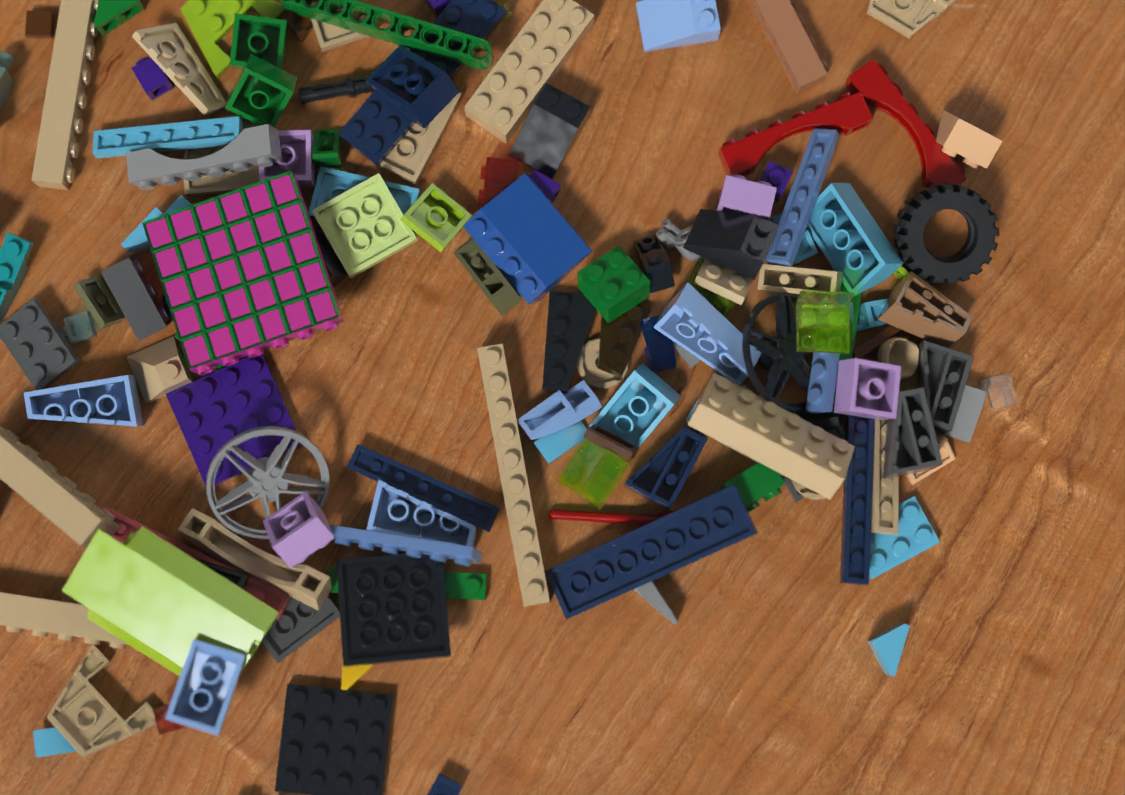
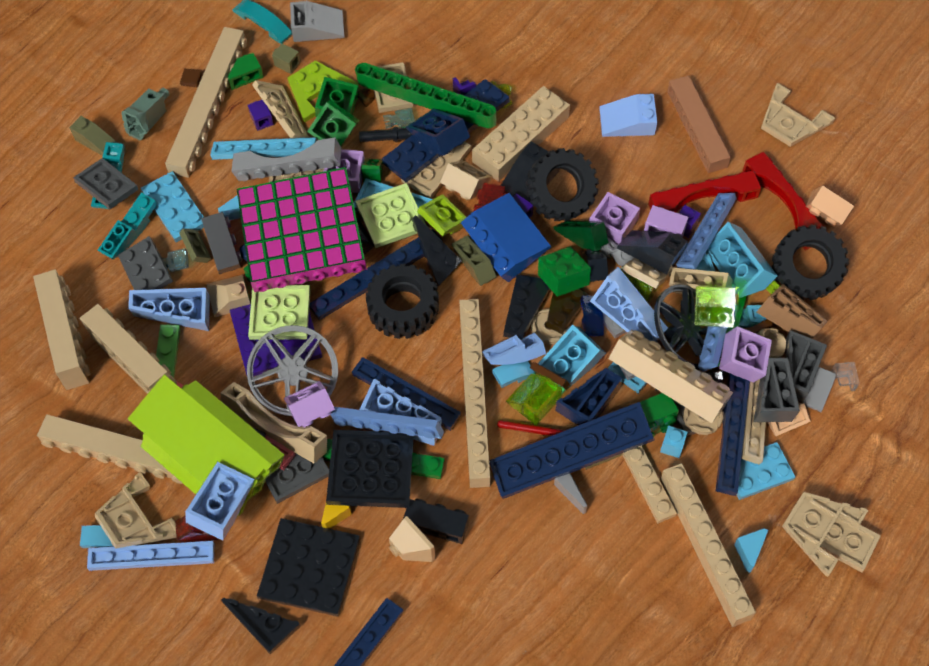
camera: 10 degrees right, 20 degrees down
(57, 240) = (174, 205): none -> medium azure plate
(93, 463) = (168, 346): none -> bright green plate
(130, 756) = (150, 555): none -> light blue plate
(236, 397) = (279, 308): none -> yellowish green plate
(357, 313) = (358, 284): none -> dark blue plate
(358, 57) = (401, 118): none -> clear light blue plate
(381, 326) = (396, 280): none -> black tyre
(441, 280) = (438, 254): none -> black wing
(459, 701) = (411, 543): none -> tan slope
(460, 149) = (464, 179): none -> tan slope
(487, 662) = (437, 520): none -> black brick
(627, 164) = (578, 168): none -> black tyre
(635, 222) = (584, 233): none -> dark green slope
(673, 191) = (617, 216): none -> lavender brick
(750, 566) = (649, 484): none -> tan plate
(781, 514) = (673, 442): none -> medium azure brick
(834, 651) = (707, 545): none -> tan brick
(964, 607) = (811, 522): none -> tan wing
(1003, 618) = (850, 543): none -> tan plate

